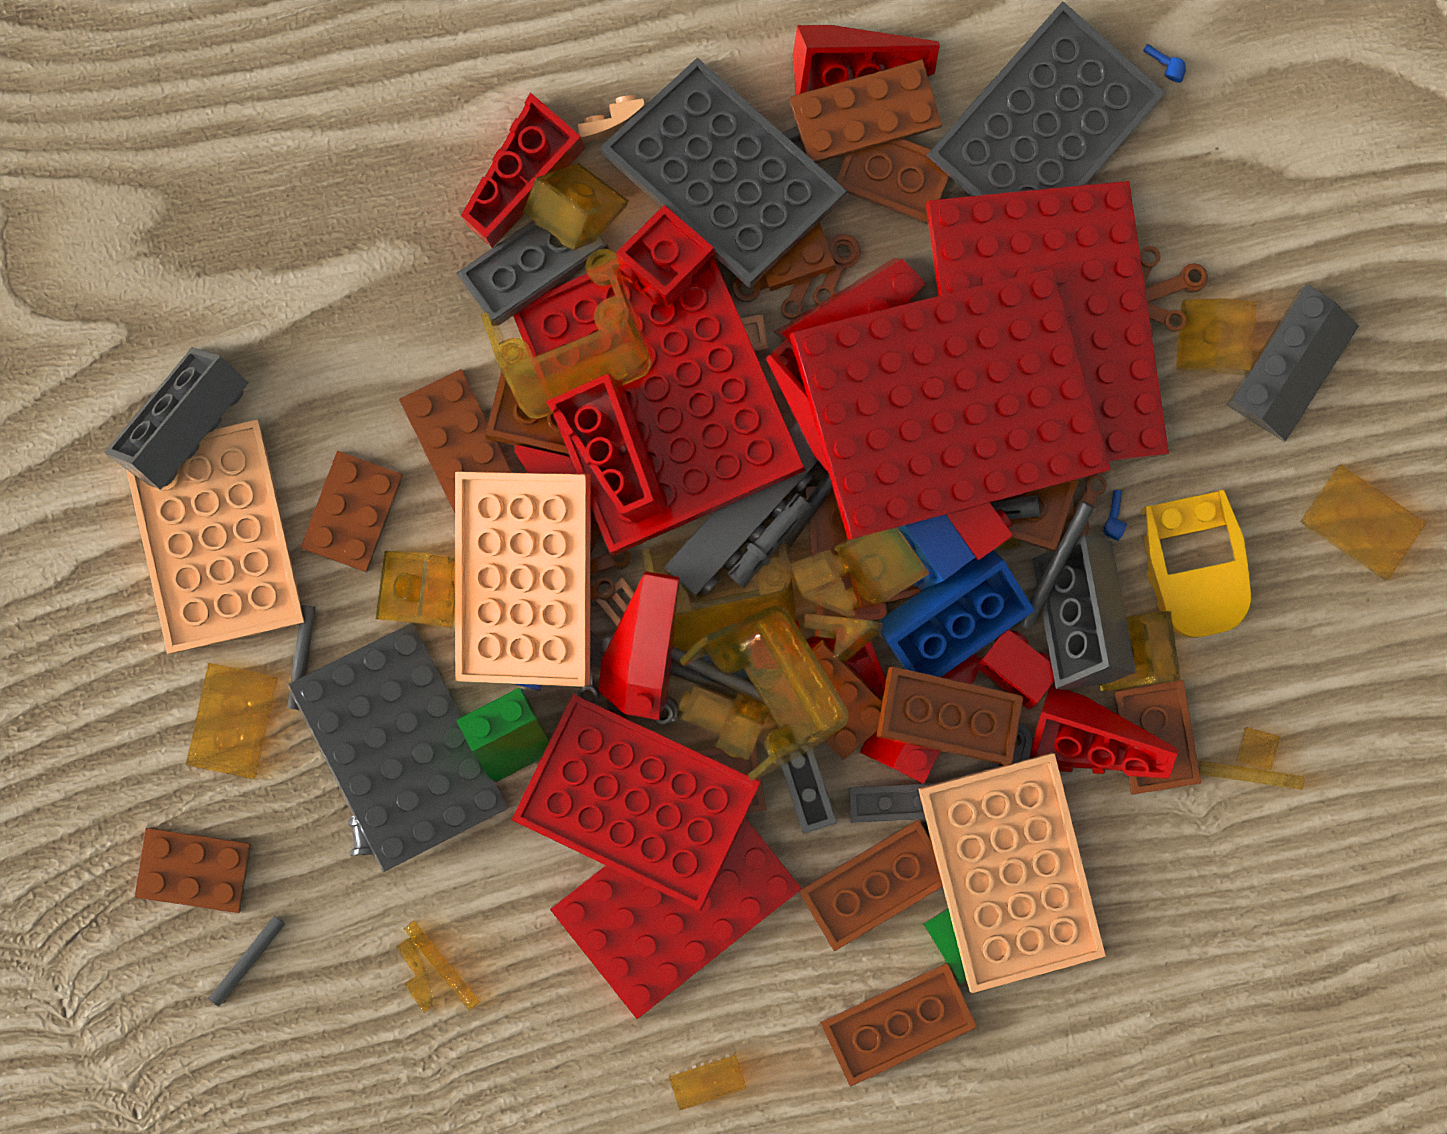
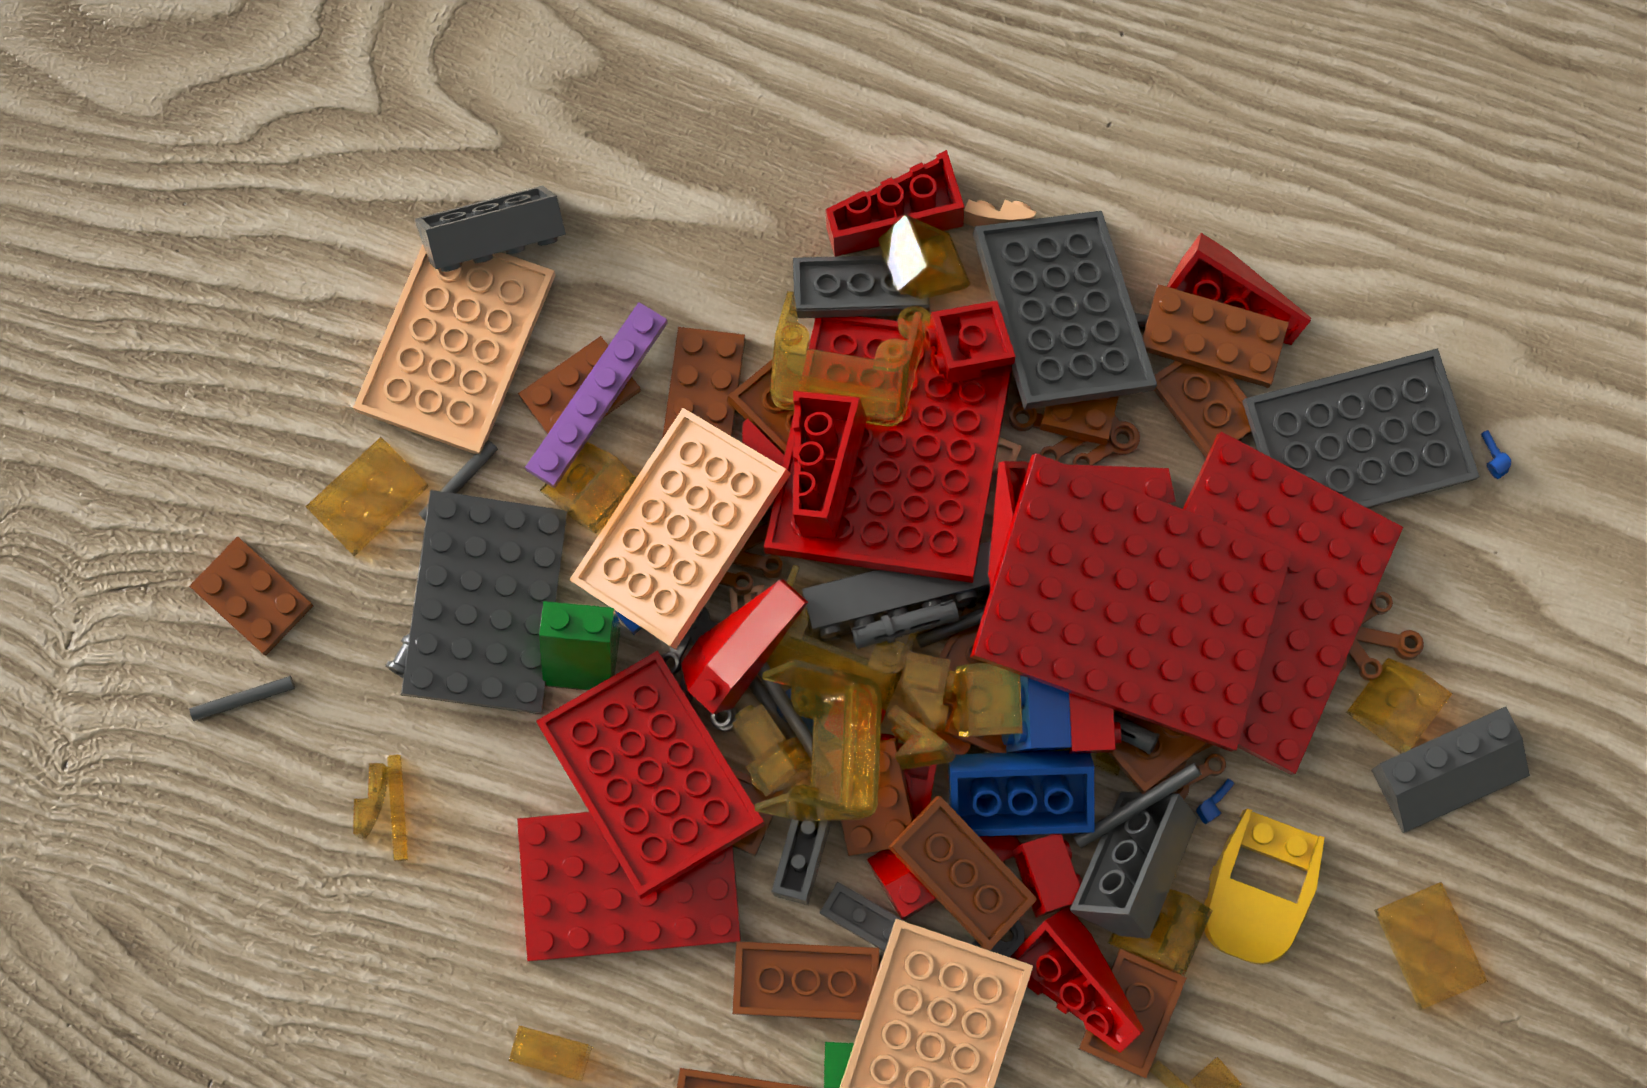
camera: 40 degrees right, 10 degrees down
(371, 506) = (596, 395): none -> medium lavender plate

